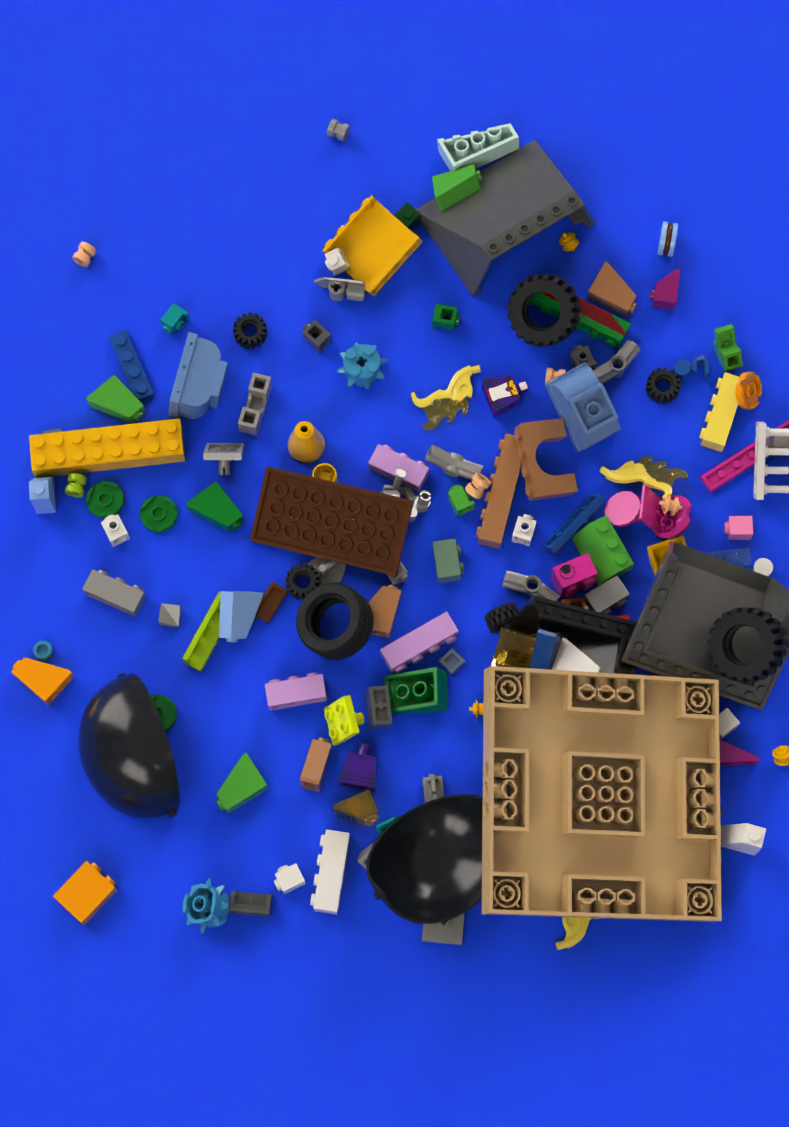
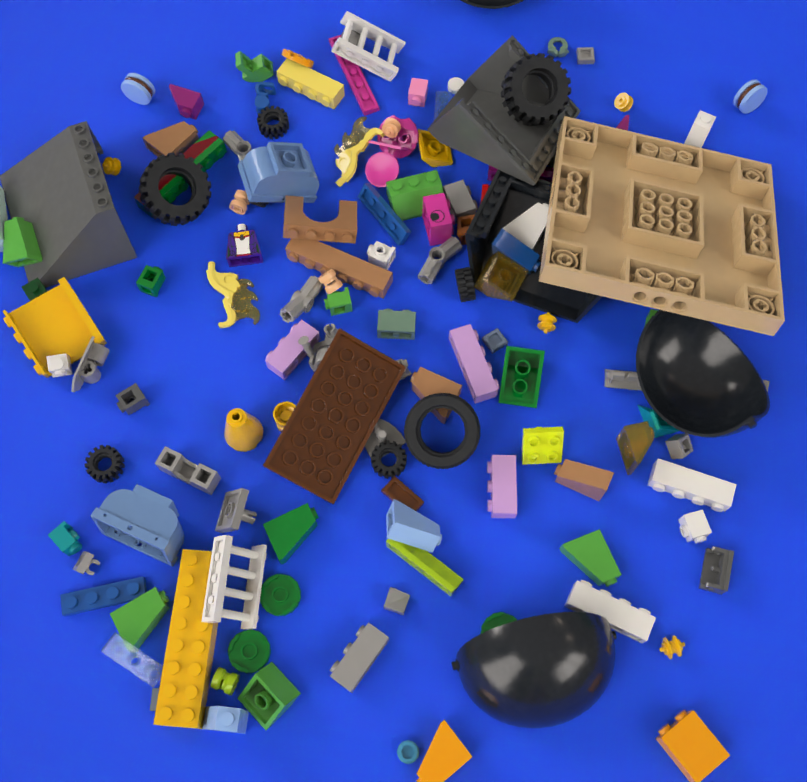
camera: 80 degrees left, 5 degrees down
(70, 524) = (268, 695): none -> bright green slope
(81, 395) = (124, 652): none -> clear light blue tile
(115, 530) = (287, 644): white brick -> none
(156, 340) = (84, 562): none -> light grey tile
(159, 452) = (217, 579): none -> white fence
(170, 867) = (672, 647): none -> yellow wheel
(193, 806) = (620, 614): none -> white brick
(206, 905) = (727, 623): dark azure brick -> none
(359, 770) = (591, 440): dark purple torso -> none
(361, 355) = (177, 362): dark azure brick -> none
(378, 707) = (532, 411): dark grey hinge -> none
(580, 351) = (229, 178): dark grey brick -> none

